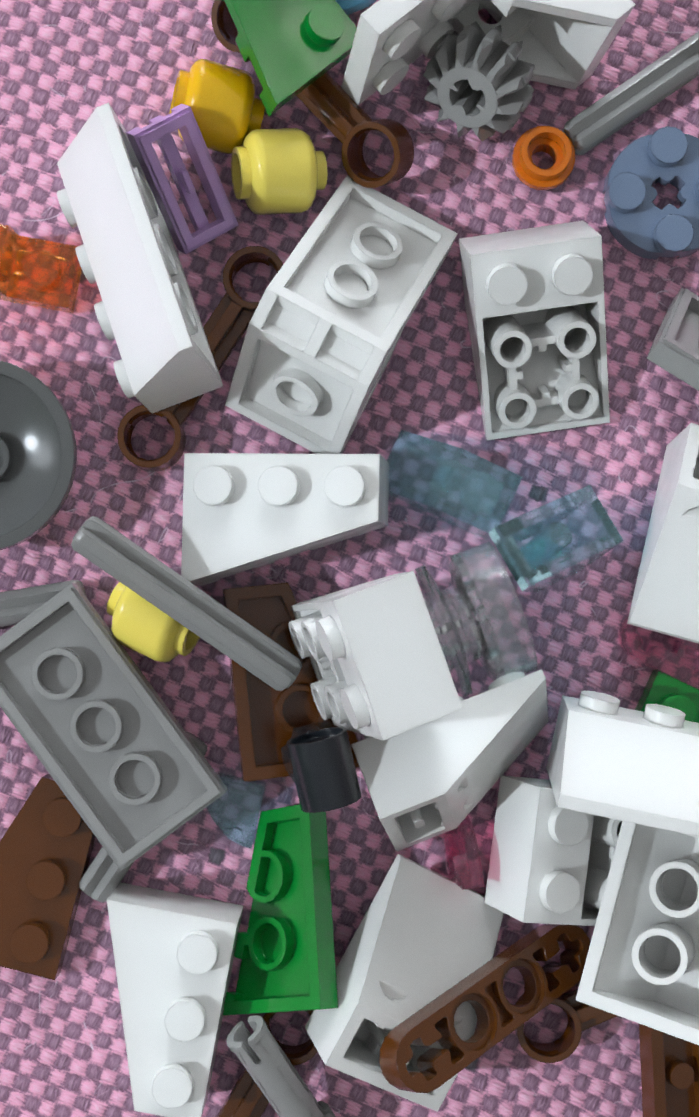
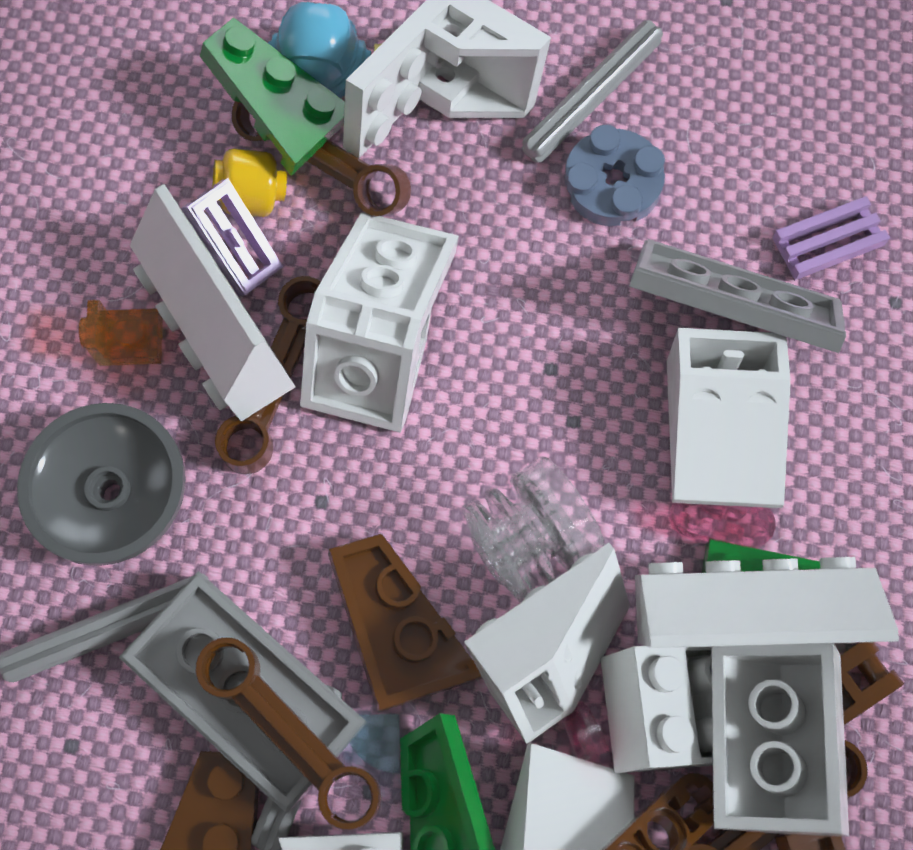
camera: 10 degrees left, 15 degrees down
(138, 792) = (287, 731): none -> reddish brown piece
(146, 628) = (276, 585): light yellow head -> none
(186, 603) = (300, 561): light grey axle -> none
(274, 505) = (357, 470): white wedge -> none
(278, 171) = (306, 219): light yellow head -> none
(321, 768) = (442, 666): black piece -> none
(375, 657) = (463, 557): white slope -> none
(450, 483) = (497, 424): clear light blue slope -> none
(479, 81) = (448, 121): light grey gear -> none
(537, 328) = (539, 294): white slope -> none
(546, 140) = (512, 156): orange plate -> none
(555, 539) = (596, 444): clear light blue slope -> none

